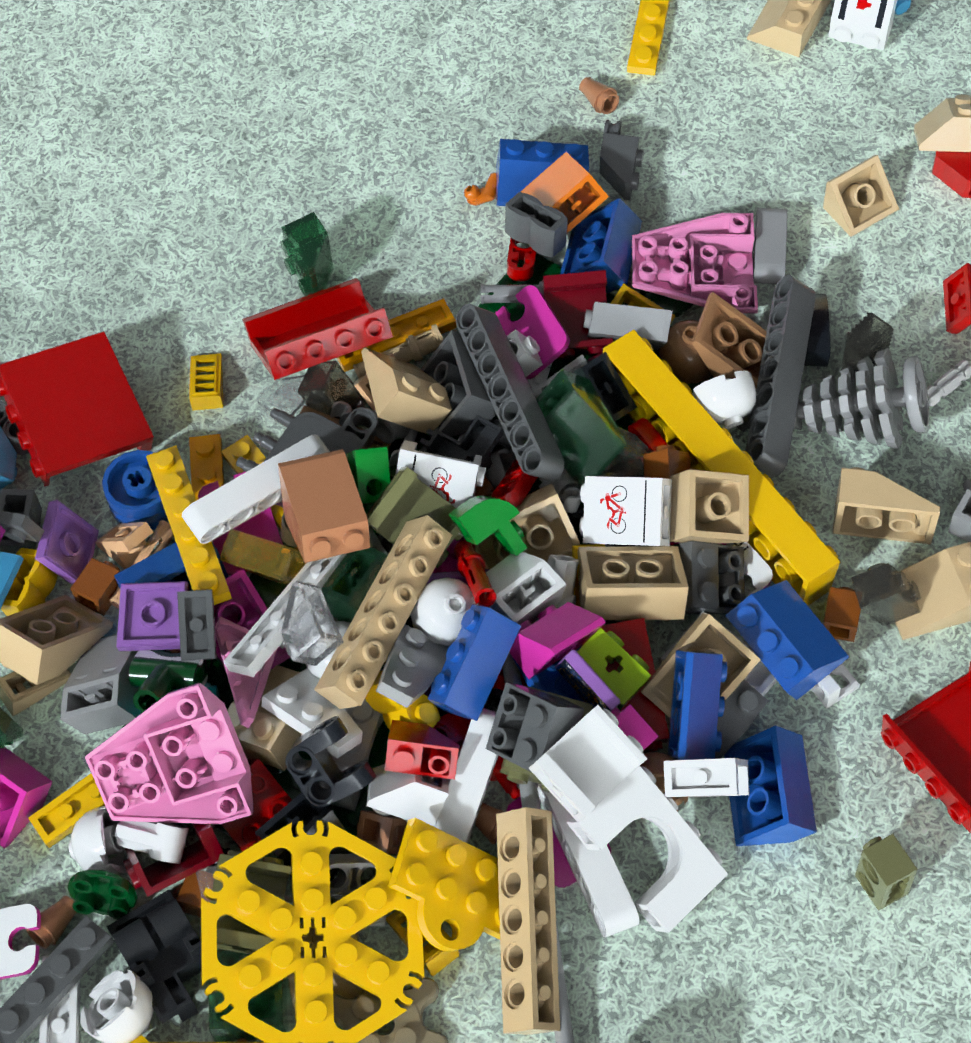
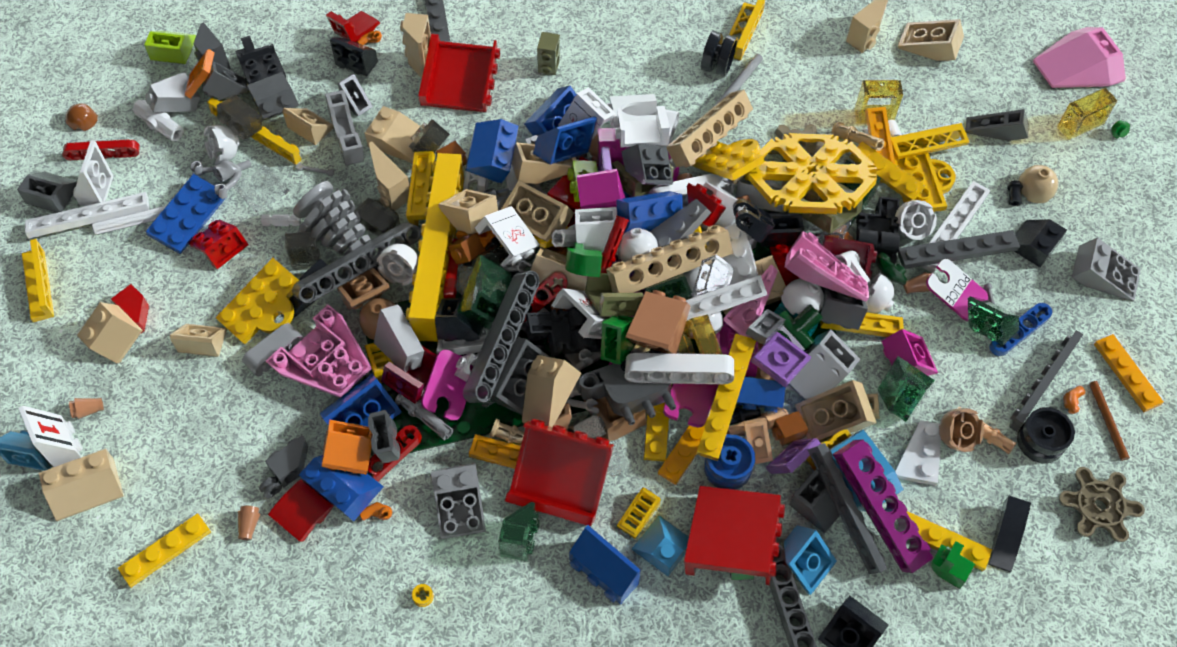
camera: 145 degrees left, 0 degrees up
(153, 364) = (662, 545): none -> dark azure slope
(195, 298) = (604, 565): none -> blue slope
(362, 167) = (417, 600): none -> yellow bush
(414, 256) = (458, 501): none -> light grey slope
(561, 129) = (300, 510): none -> red slope
(825, 459) = (376, 217): none -> clear smoke brick
(841, 272) = (260, 303): none -> yellow plate
(851, 551) = (419, 186): none -> yellow fence
(885, 63) = (85, 406): none -> nougat cone

